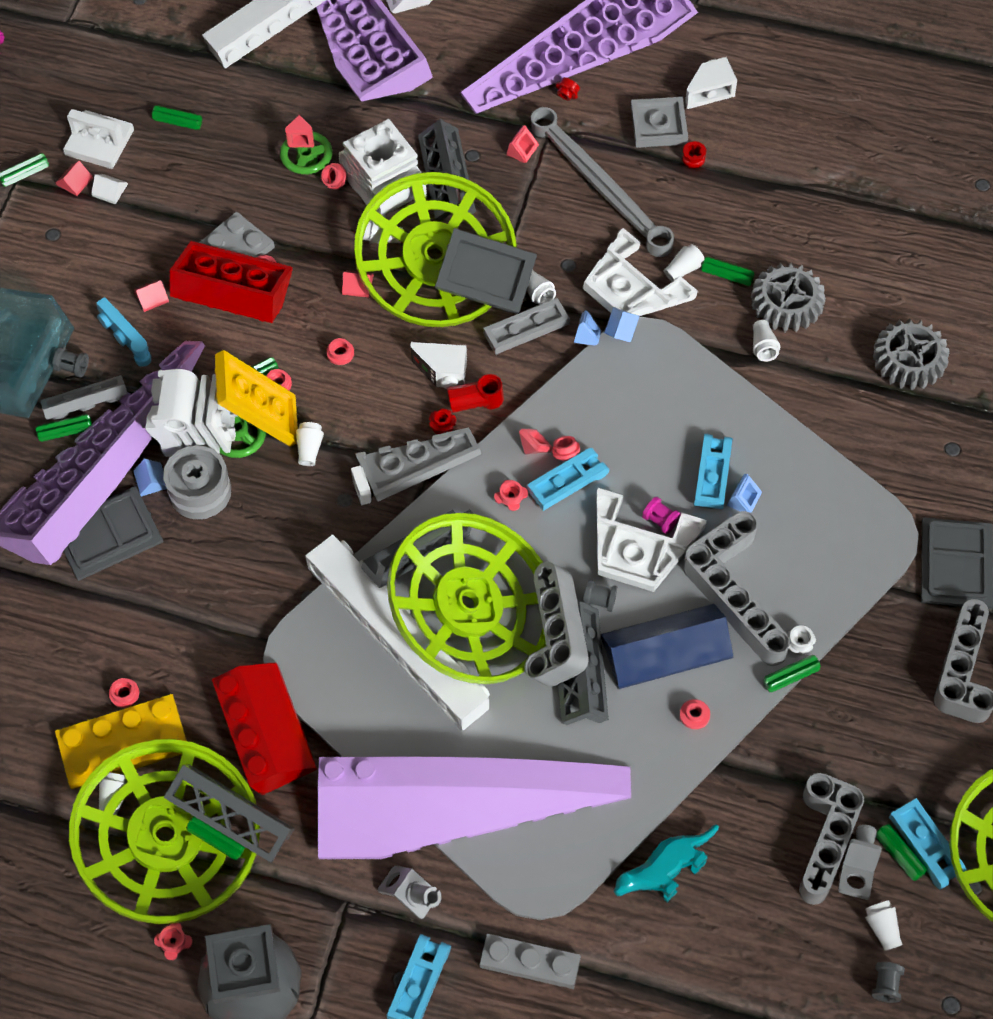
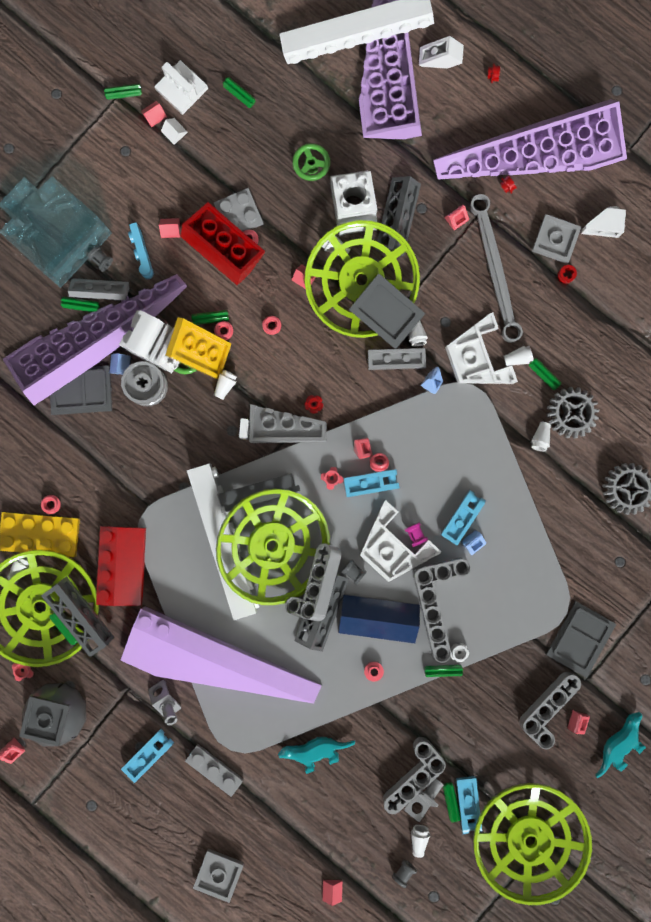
camera: 20 degrees right, 25 degrees up
(299, 133) = (309, 149): coral slope -> none
(328, 176) = (322, 187): coral plate -> none
(441, 362) = (331, 364): white slope -> none
(474, 394) = (339, 395): red piece -> none
(621, 324) = (455, 388): light blue slope -> none

